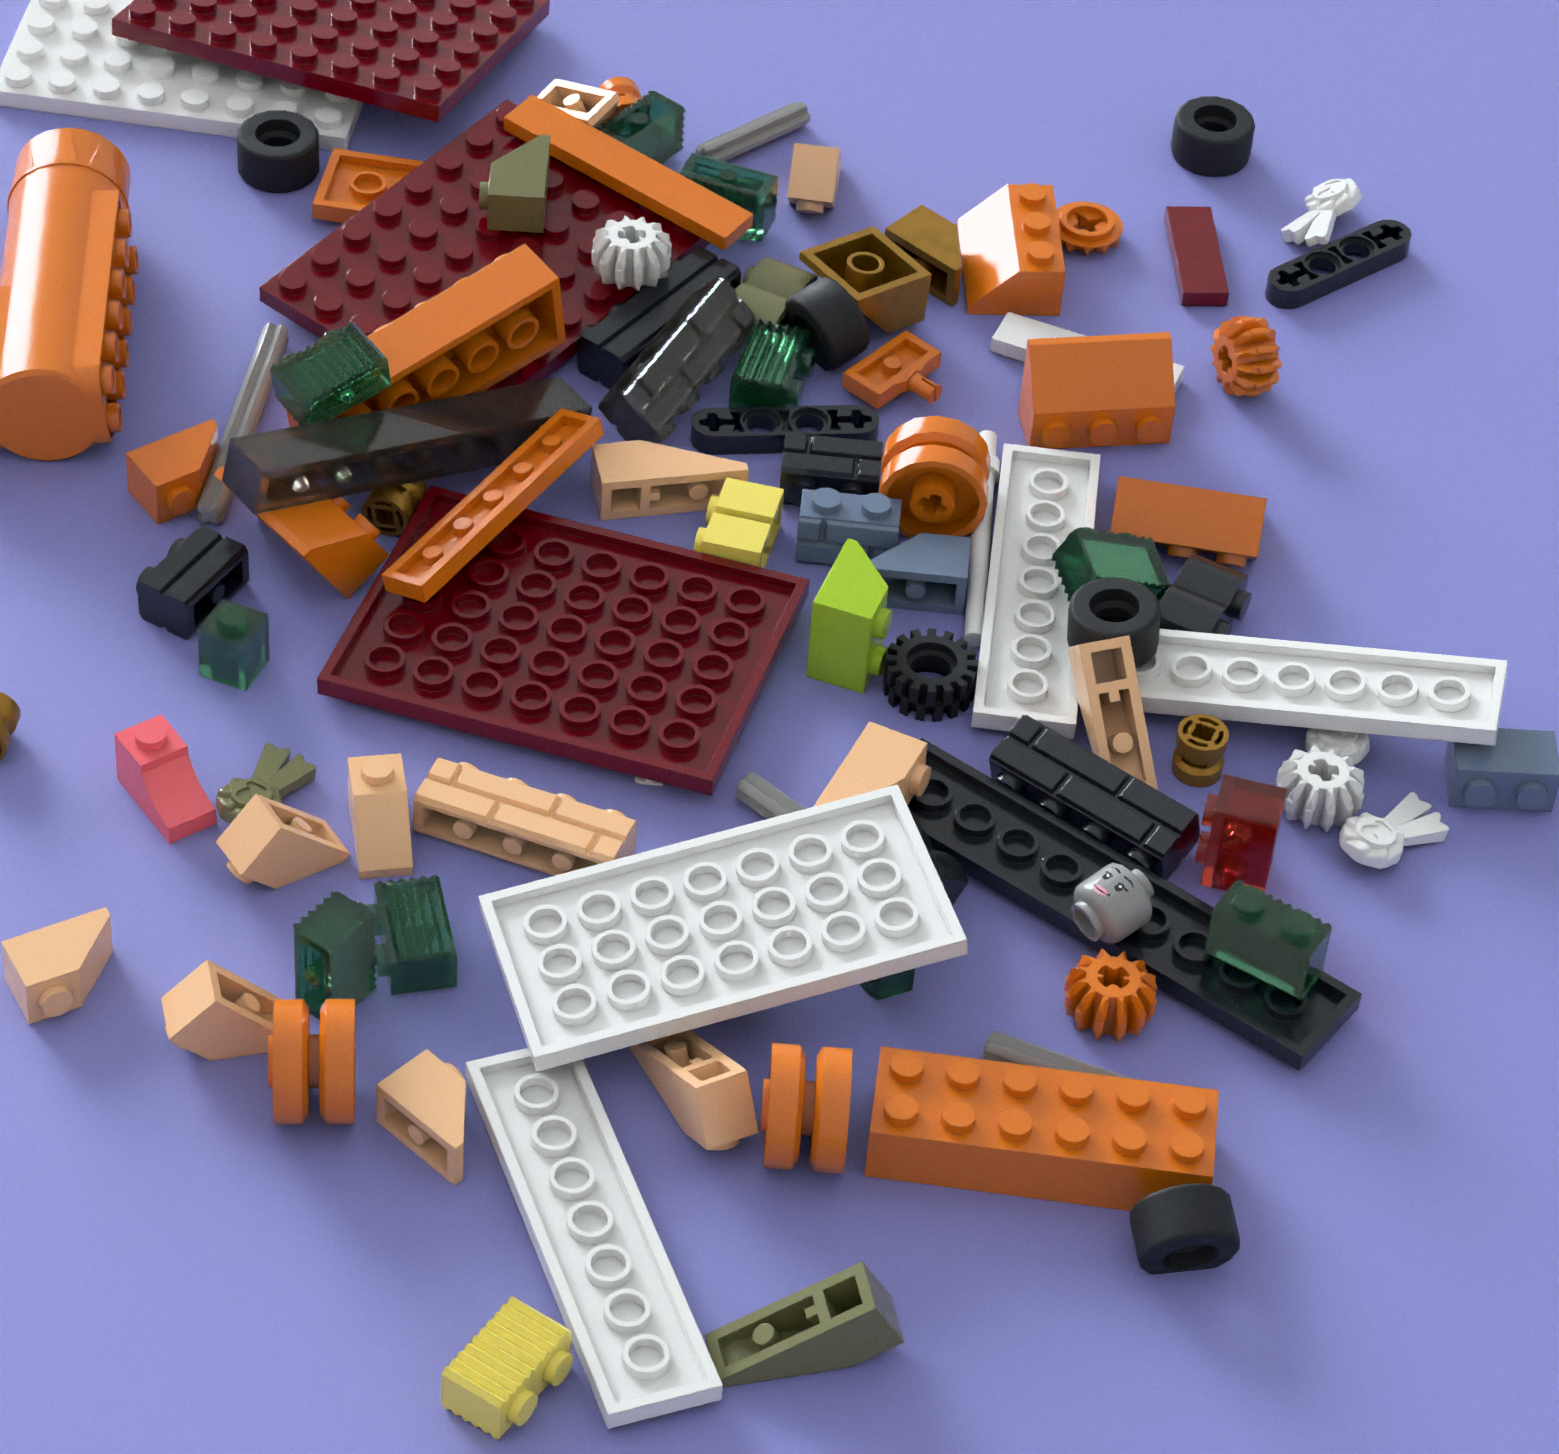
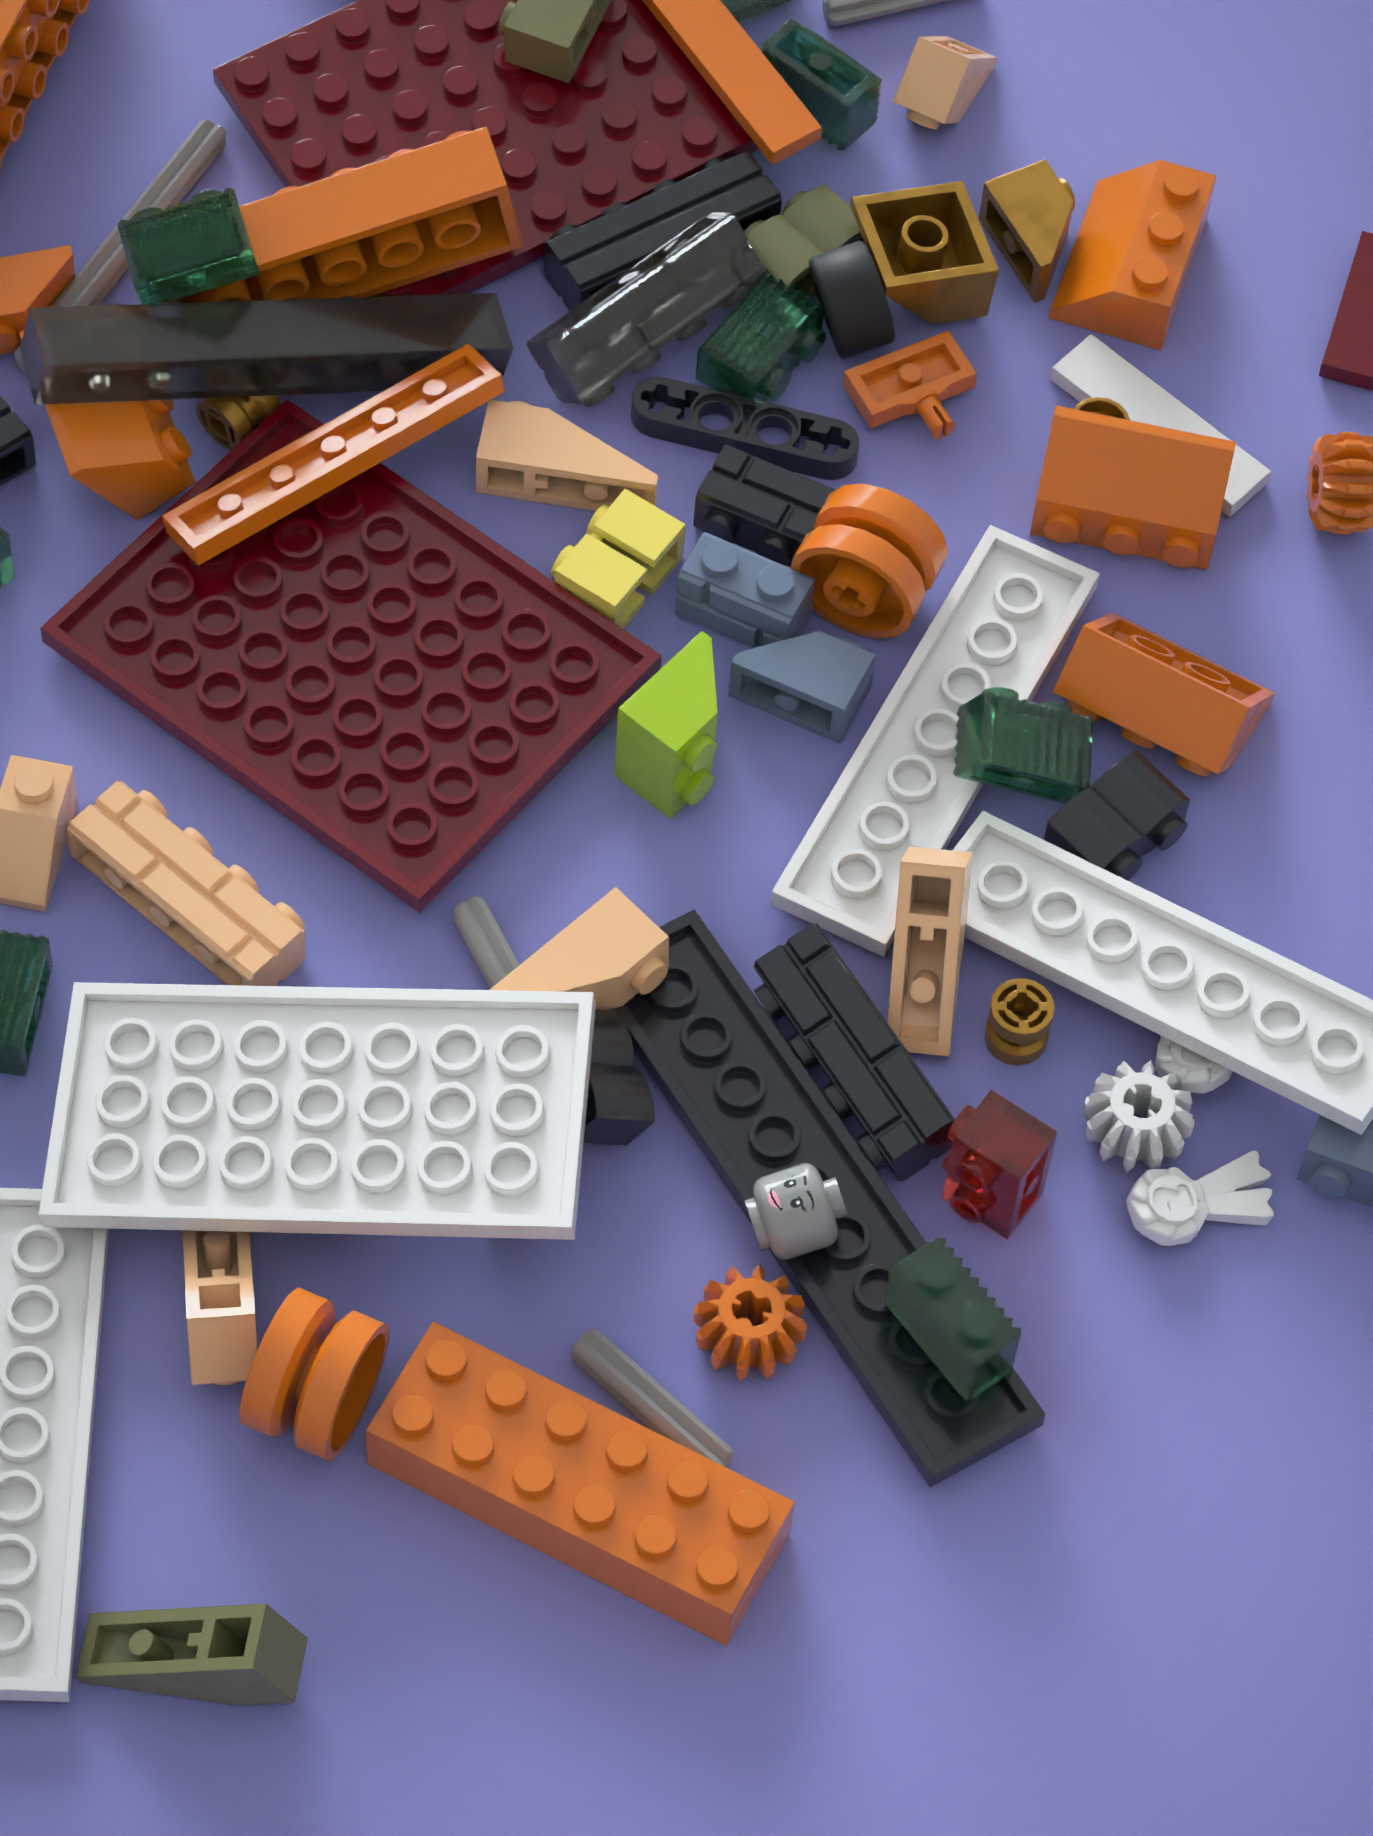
camera: 20 degrees right, 15 degrees up
(631, 253) = (648, 146): white gear -> none
(927, 694) = (750, 791): black tyre -> none
(980, 554) = (960, 546): white bar -> none
(1089, 218) = (1264, 221): orange gear -> none
(1113, 610) = (993, 796): black tyre -> none
(1184, 1229) = (677, 1664): black tyre -> none

